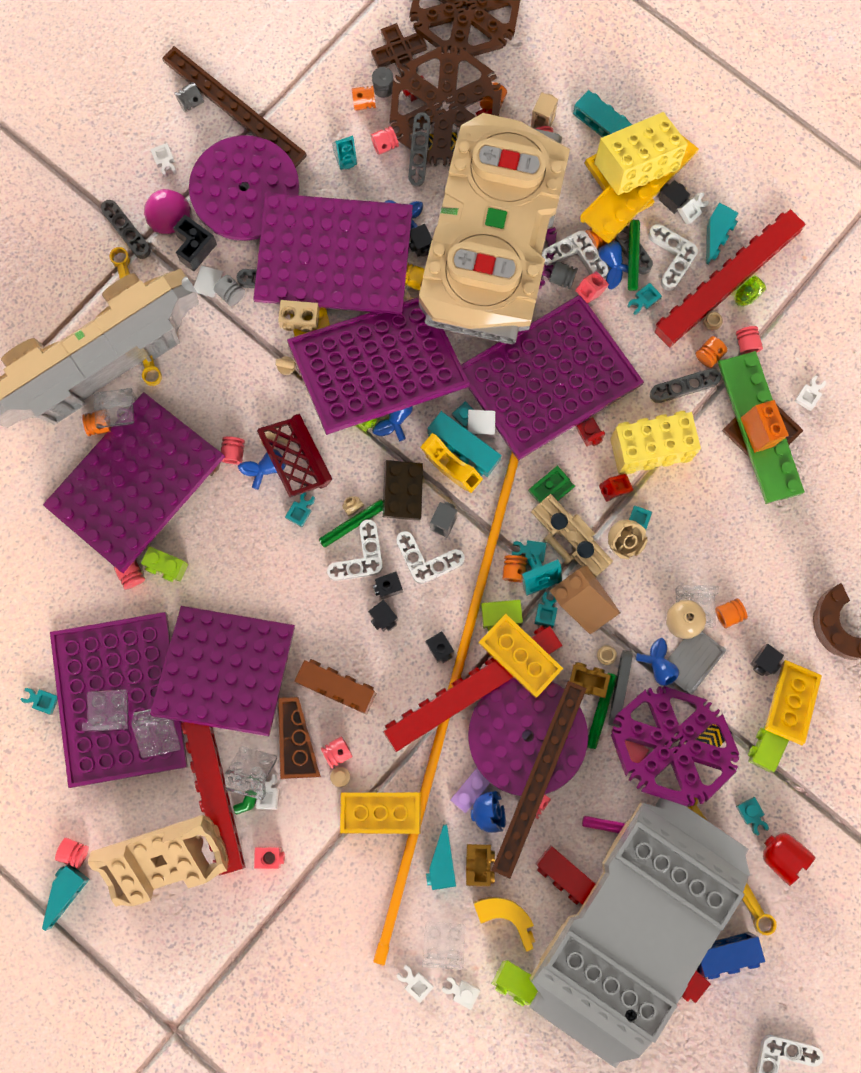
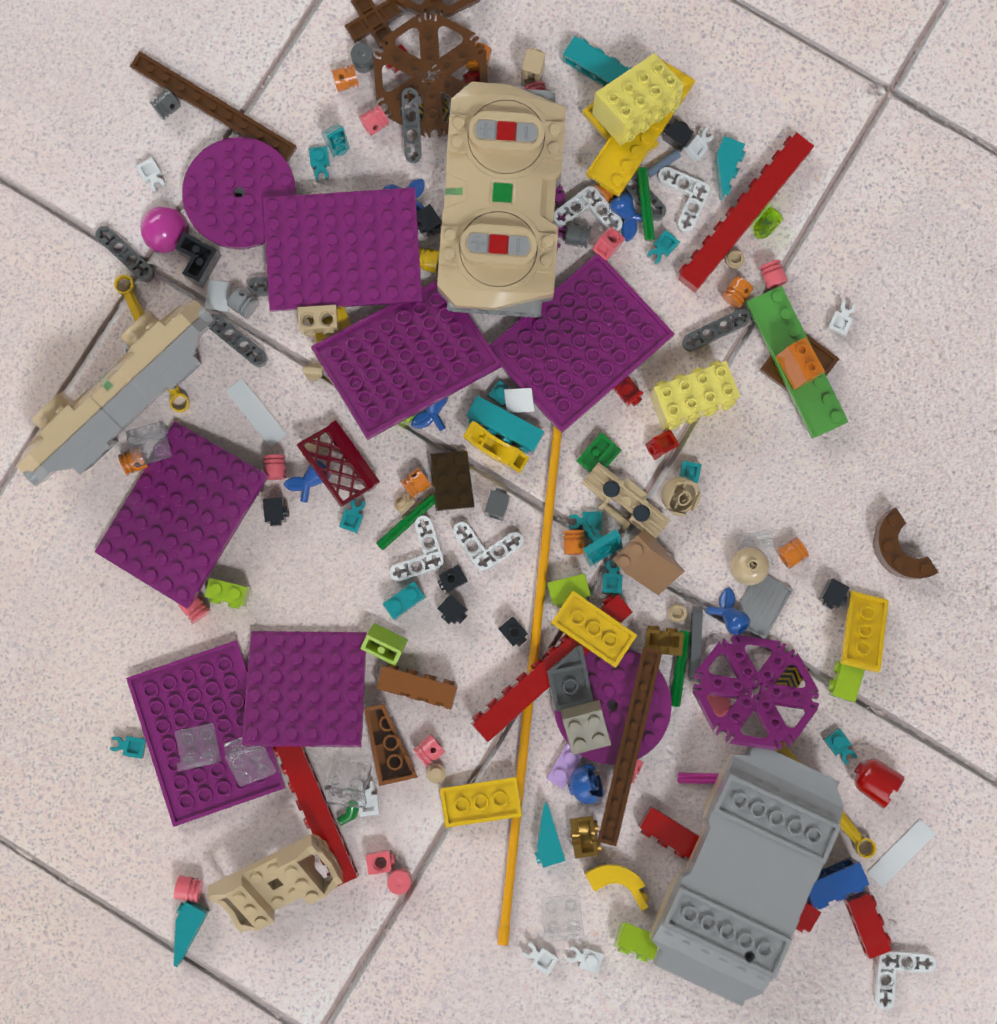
camera: 10 degrees left, 5 degrees up
(217, 325) = (238, 338): none -> dark grey beam
(224, 396) = (256, 412): none -> white sticker
(225, 492) = (275, 511): none -> black brick
(284, 880) = (399, 881): none -> coral piece
(309, 638) = (384, 644): none -> lime brick
(326, 170) = (319, 159): none -> teal plate
(336, 599) = (404, 601): none -> teal brick
(367, 486) = (415, 483): none -> orange piece
(489, 708) = (570, 681): none -> dark grey wing
(497, 752) = (585, 727): none -> dark tan brick
(659, 219) = (664, 162): none -> sand blue piece
(757, 1005) = (868, 924): none -> red brick
(801, 936) = (901, 853): none -> white sticker

